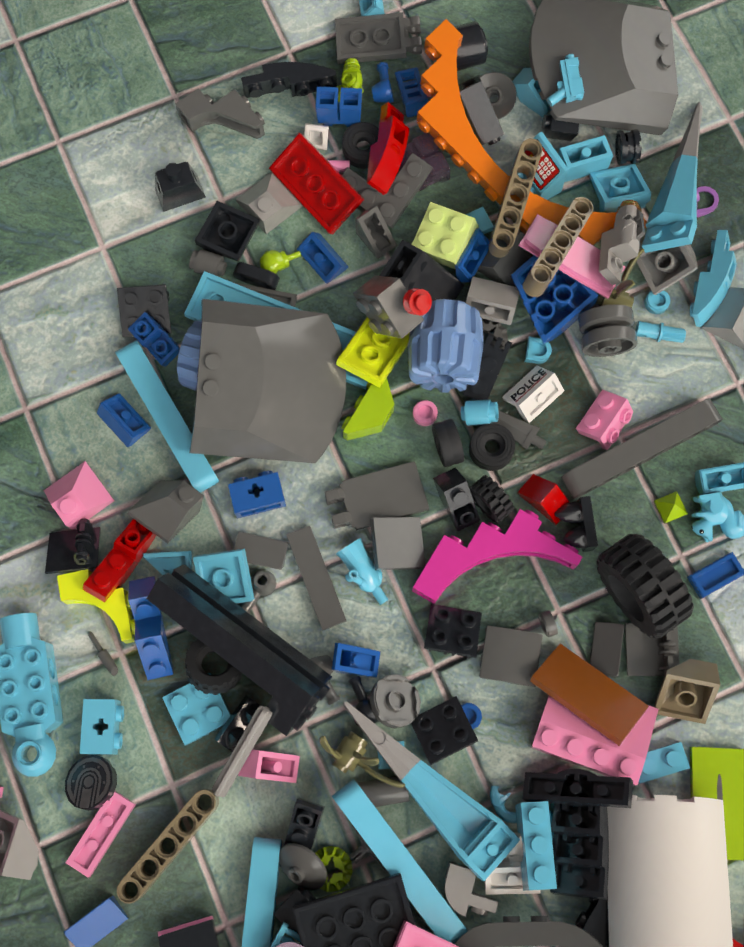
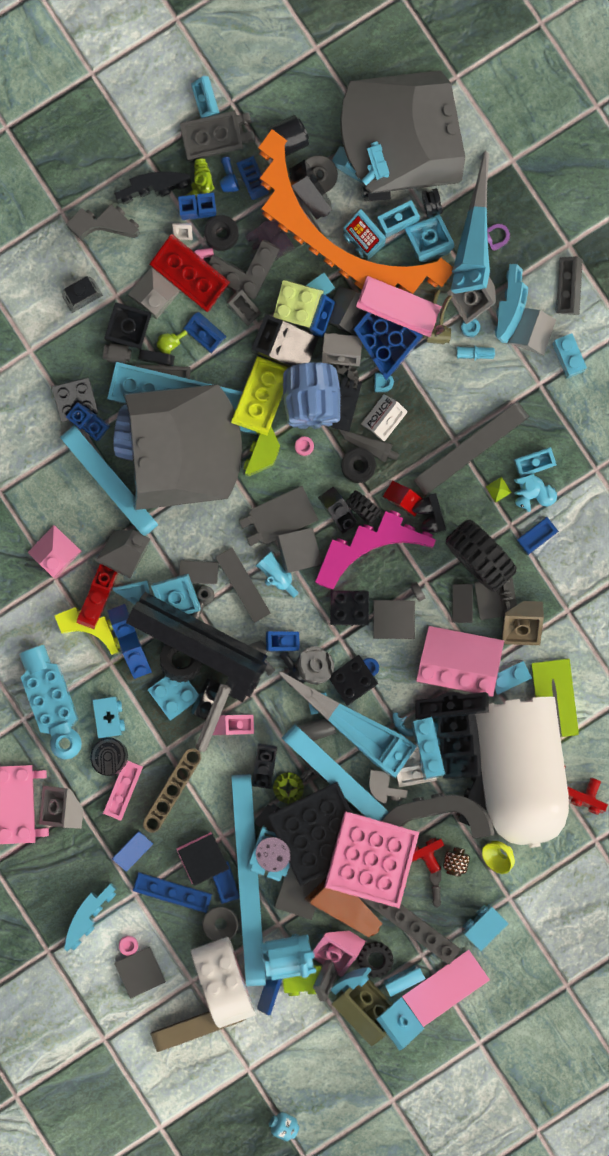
camera: 10 degrees left, 10 degrees up
(73, 549) = (60, 593): black hinge -> none
(104, 656) = (99, 667): dark grey piece -> none
(123, 419) = (75, 488): blue slope -> none
(243, 496) = (182, 539): blue brick -> none
(302, 866) = (268, 789): dark grey dish -> none
(351, 753) = (289, 708): olive plant -> none
(389, 150) = (244, 237): red slope -> none
(391, 307) = (266, 375): dark grey brick -> none
(448, 442) = (325, 469): black tyre -> none
(479, 412) = (345, 440): medium azure brick -> none
(520, 188) = (353, 260): dark tan beam -> none
(558, 247) = (389, 298): dark tan beam -> none
(589, 694) = (452, 638): dark orange tile -> none
(606, 418) = (441, 429): bright pink bracket -> none
(607, 330) = (433, 362): dark grey wheel -> none
(622, 241) = (435, 291): light grey plate -> none

